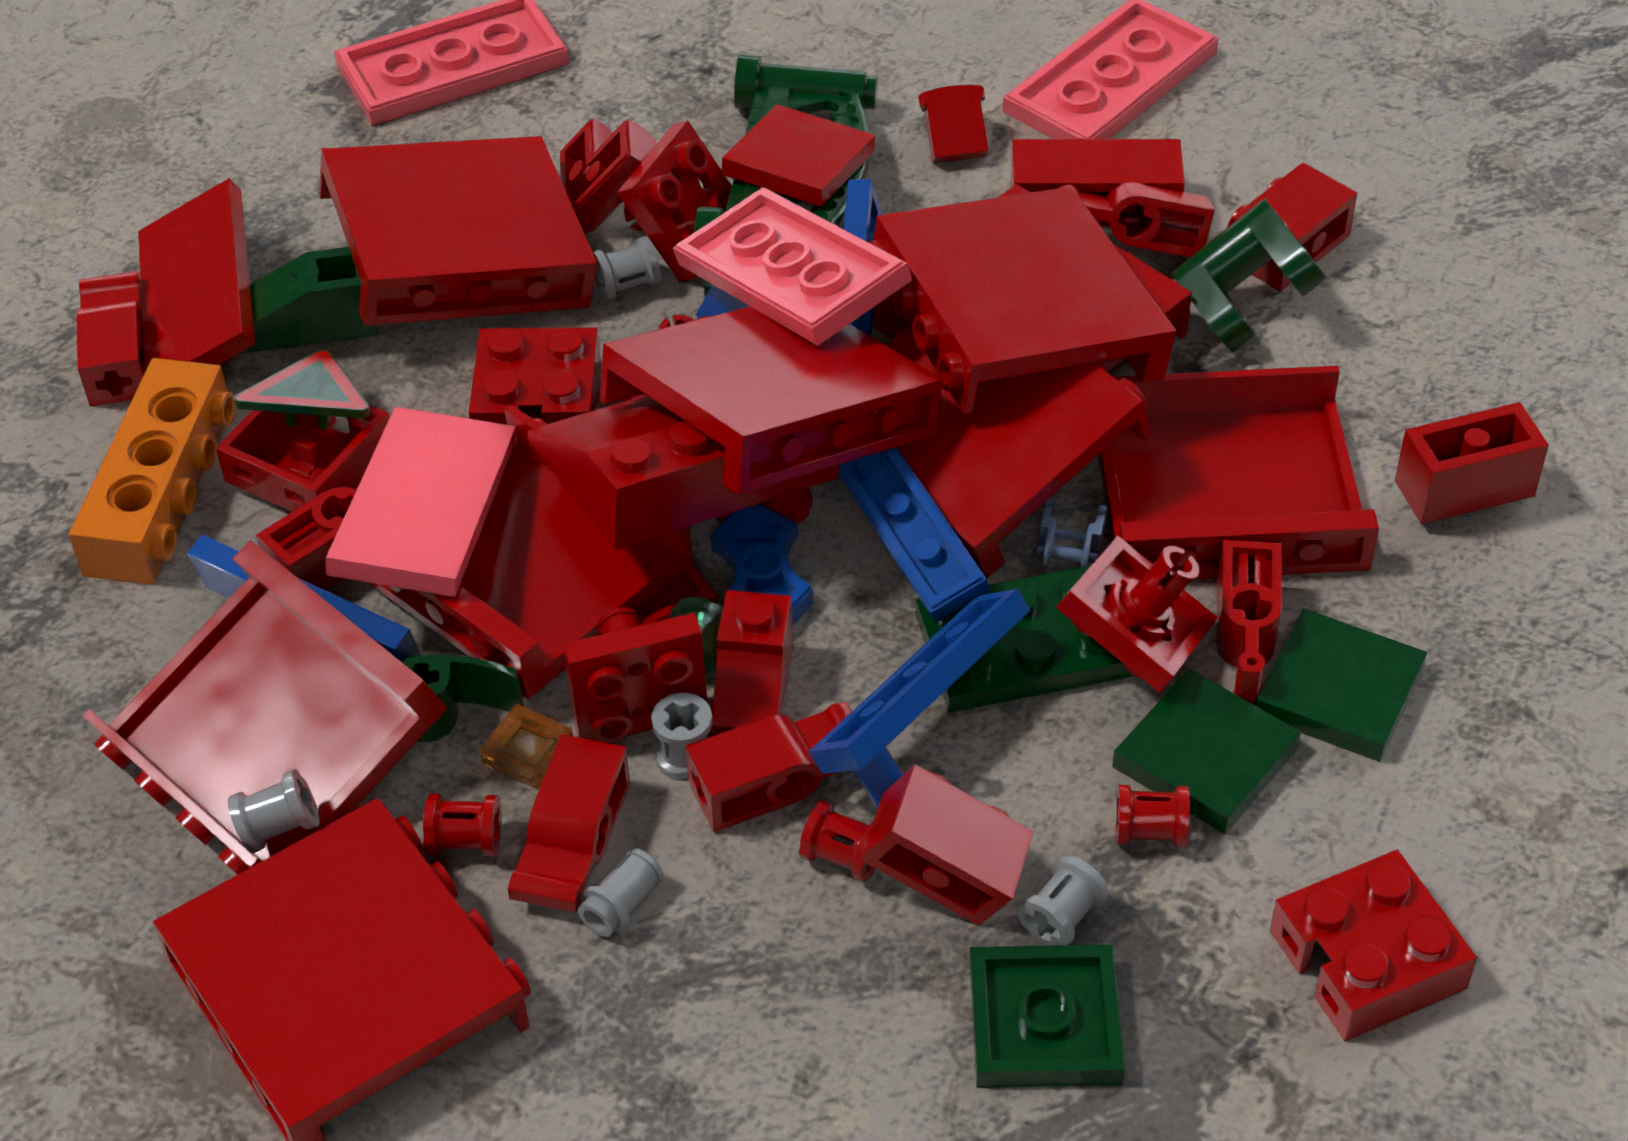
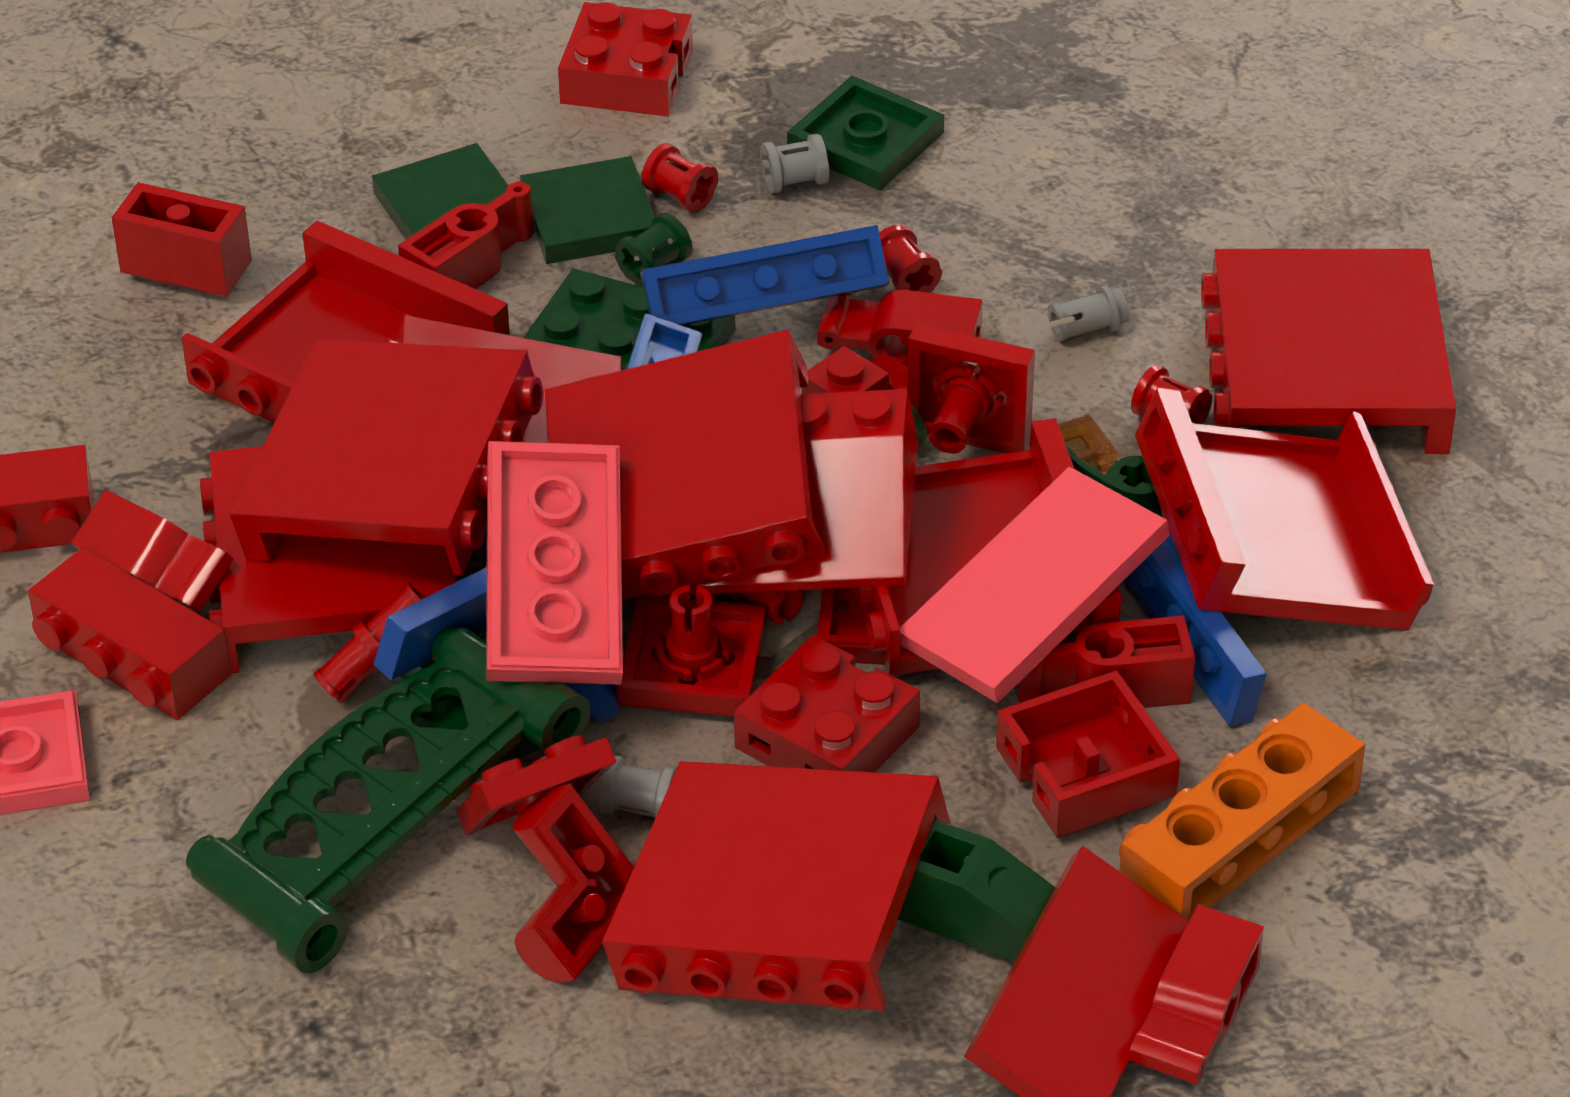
camera: 145 degrees left, 5 degrees down
(273, 811) = (1341, 431): light grey bush -> none
(307, 387) = (1060, 751): piece -> none
(571, 822) = (1092, 365): red piece -> none
(798, 155) = (390, 747): red tile -> none
(947, 845) = (847, 194): brick -> none
(955, 122) = (163, 774): red tile -> none
(1088, 718) = (661, 229): none -> dark green bush
(1140, 610) = (549, 258): red plate -> none
(1236, 256) = (133, 460): dark green connector -> none

